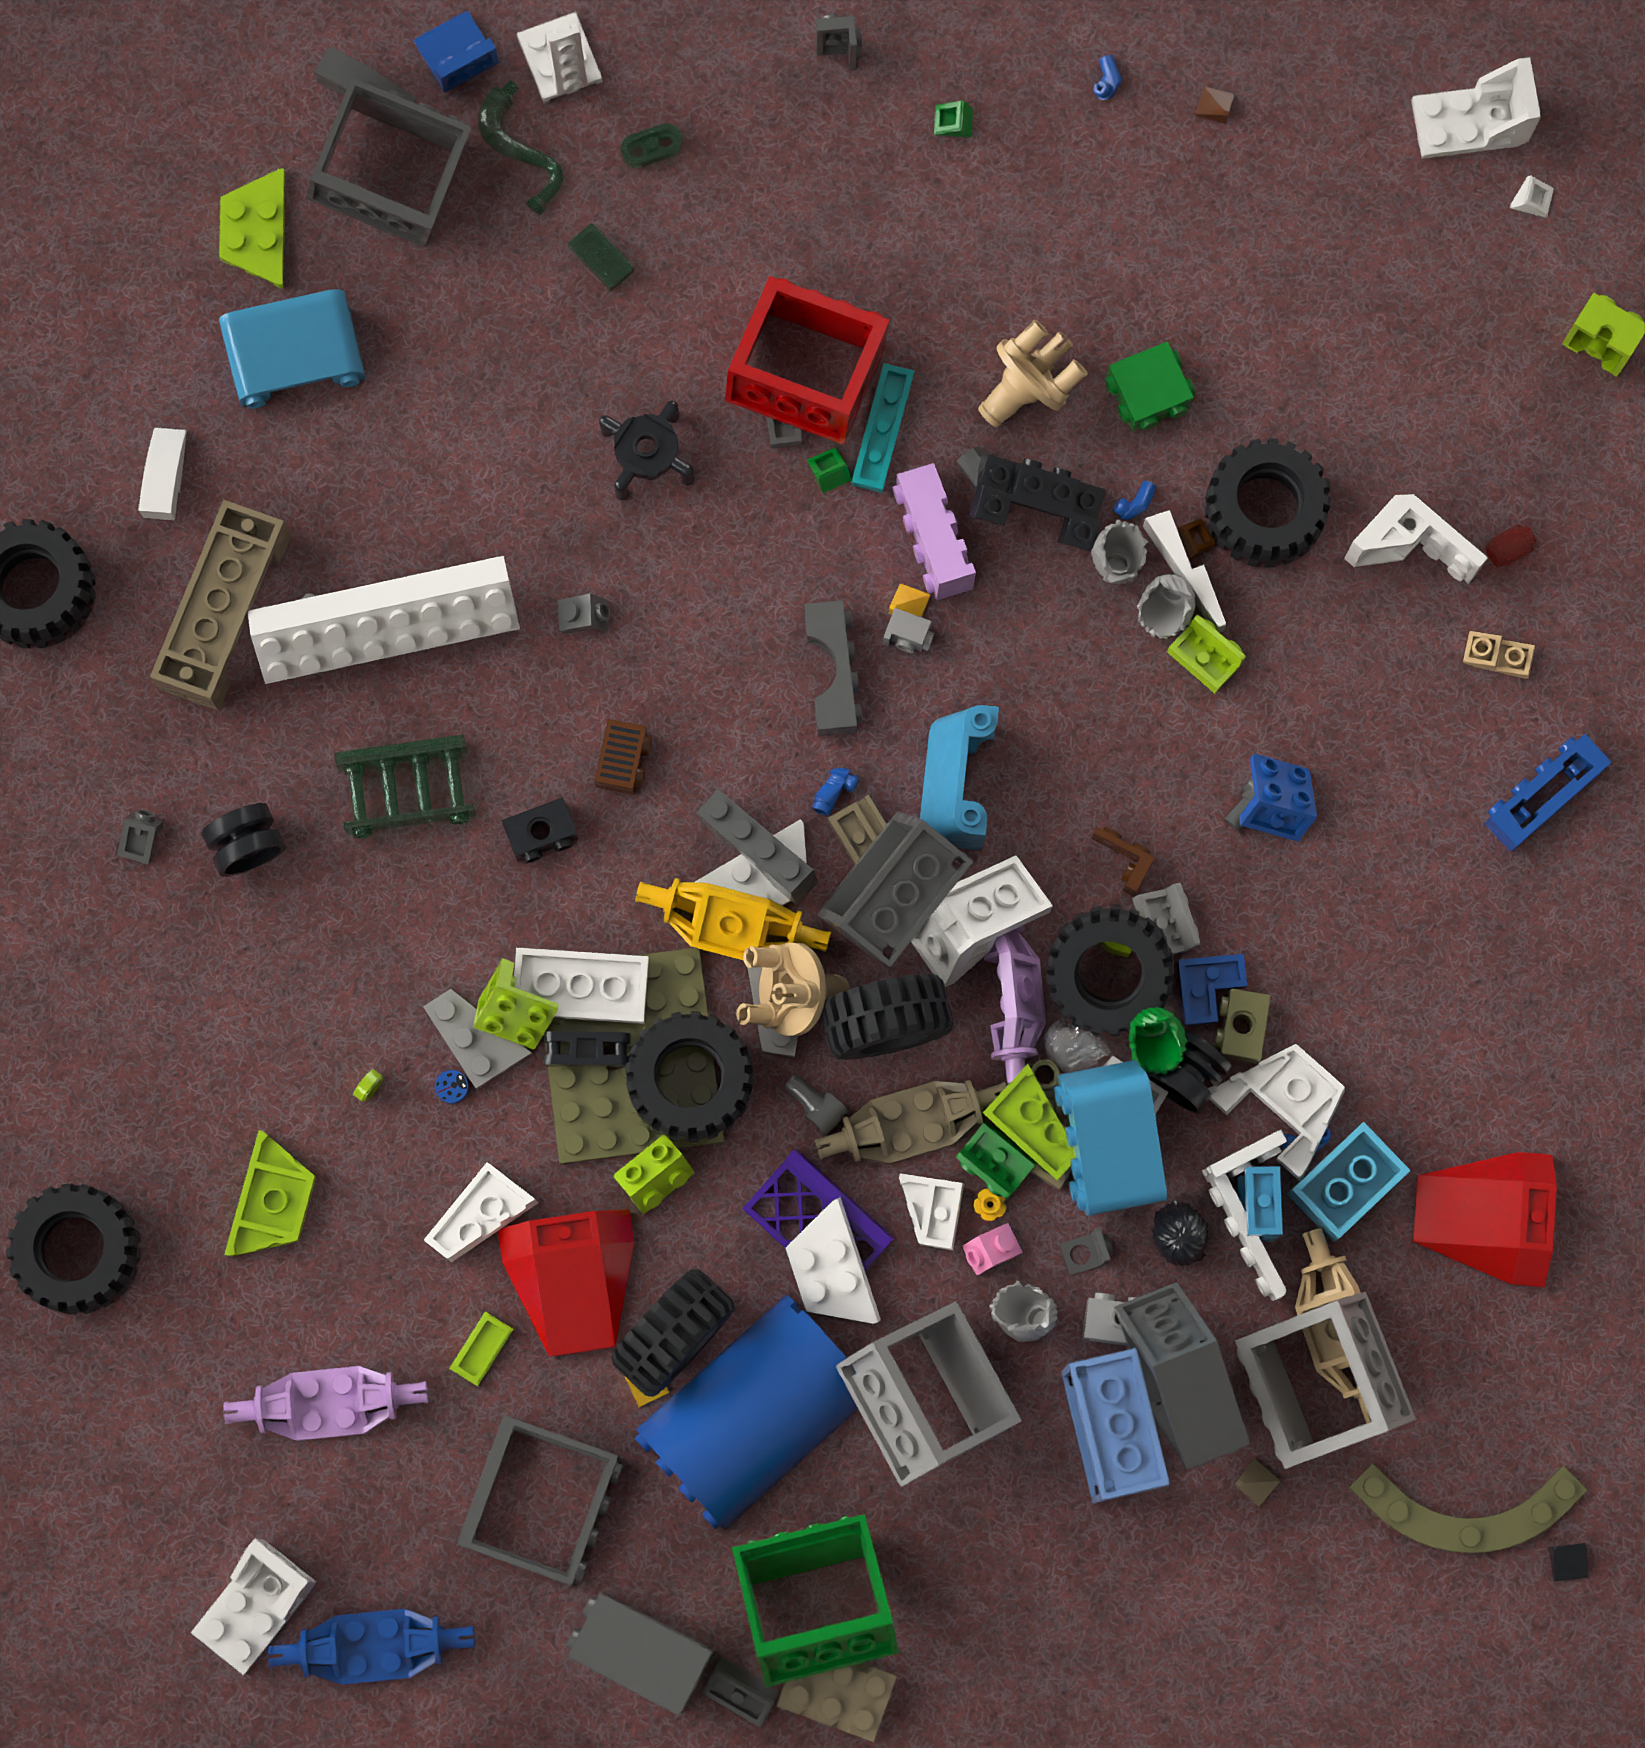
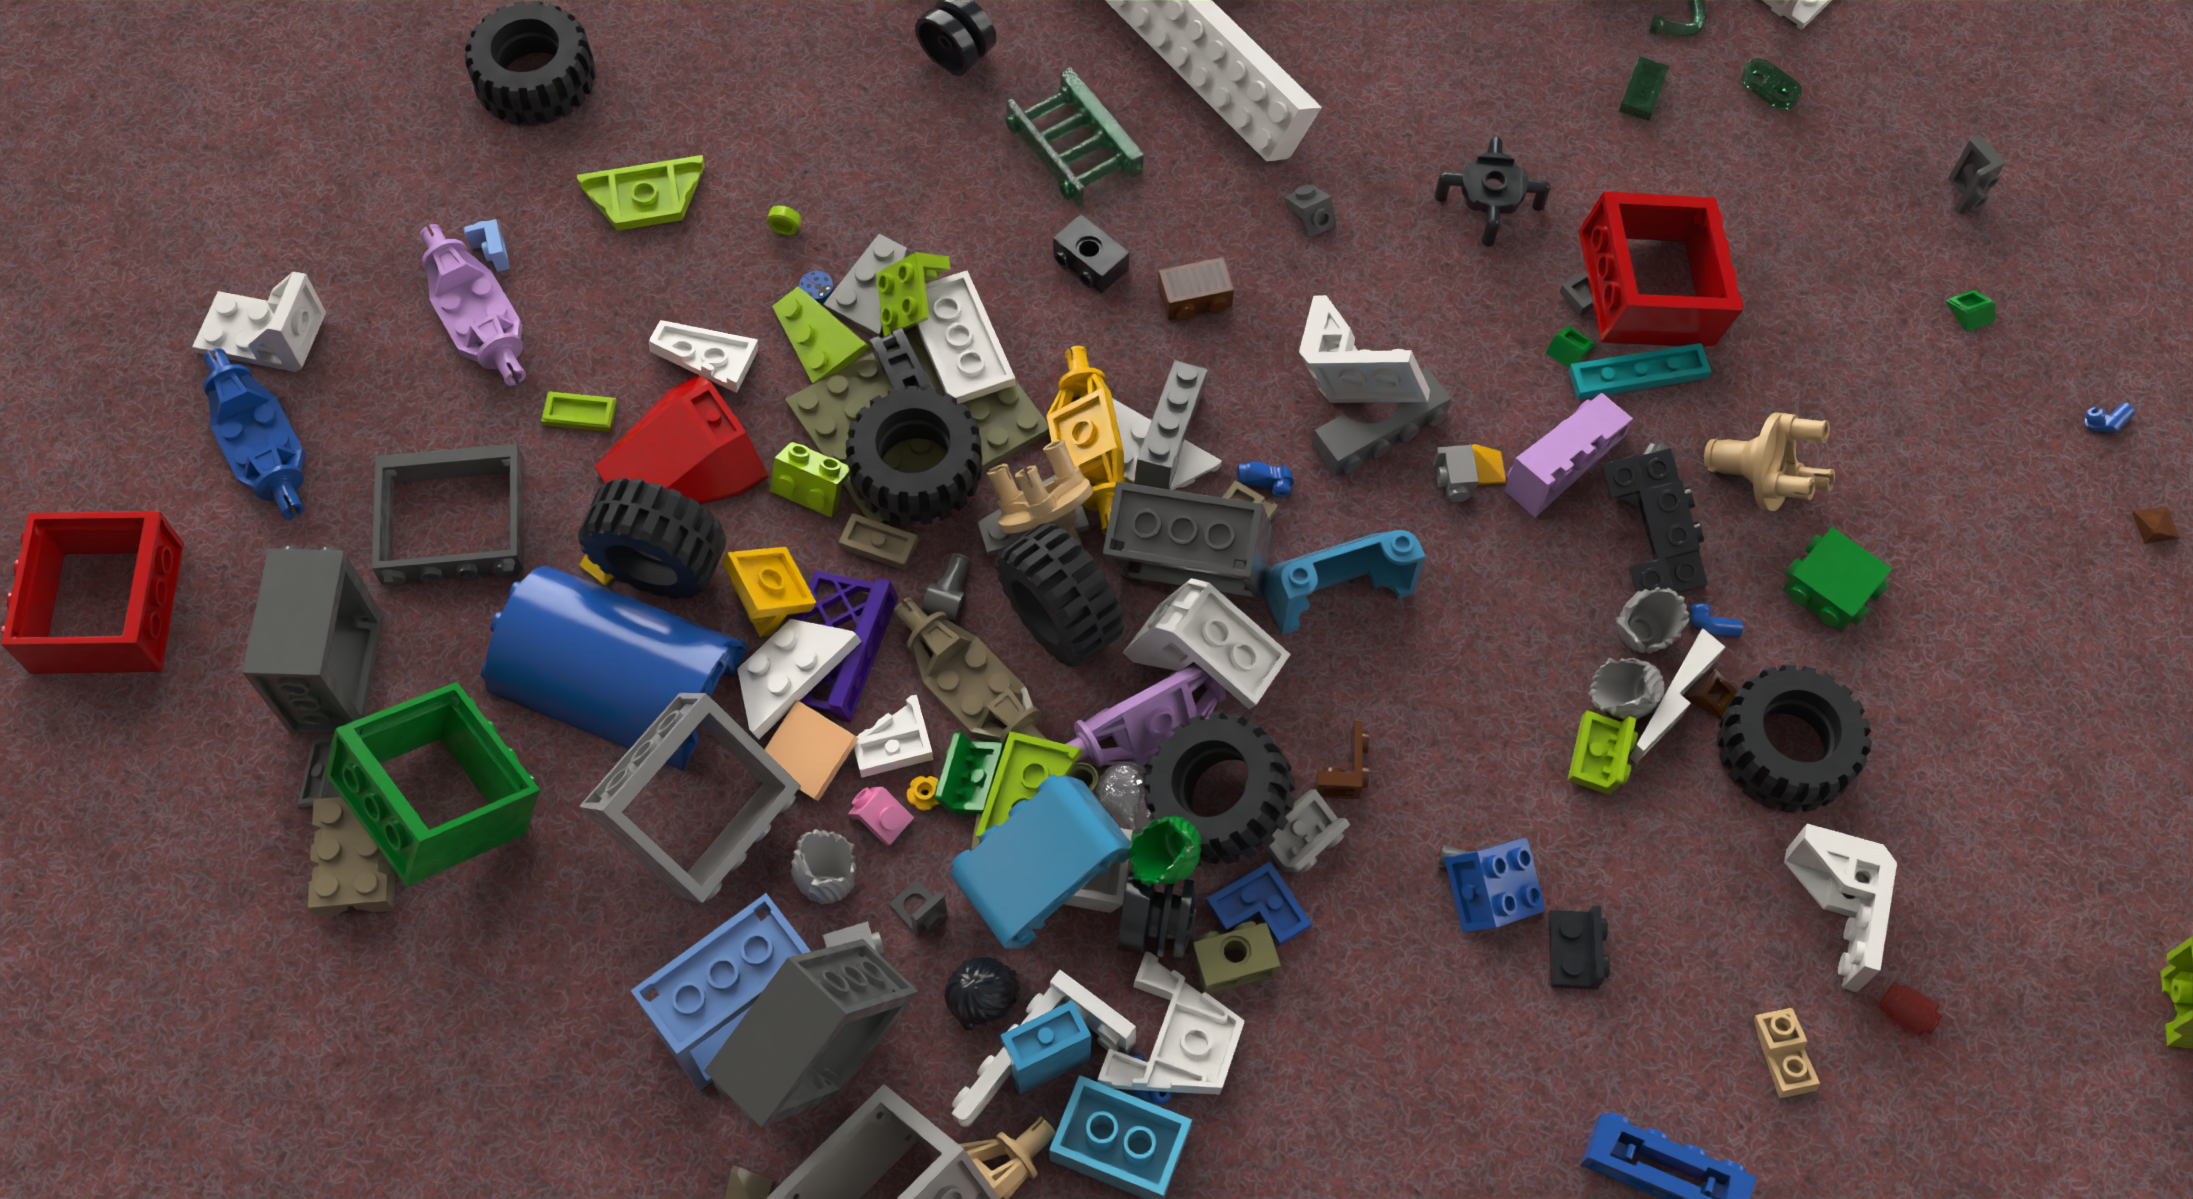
camera: 65 degrees right, 15 degrees down
(269, 1361) = (490, 238): none -> light blue bracket
(511, 1108) = (817, 336): none -> lime wing
(741, 1143) = (878, 541): none -> dark tan plate
(748, 1252) = (768, 586): none -> yellow bracket
(765, 675) = (1351, 374): none -> white bracket
(911, 1283) = (810, 748): none -> light nougat tile
(1352, 762) = (1578, 948): none -> black bracket

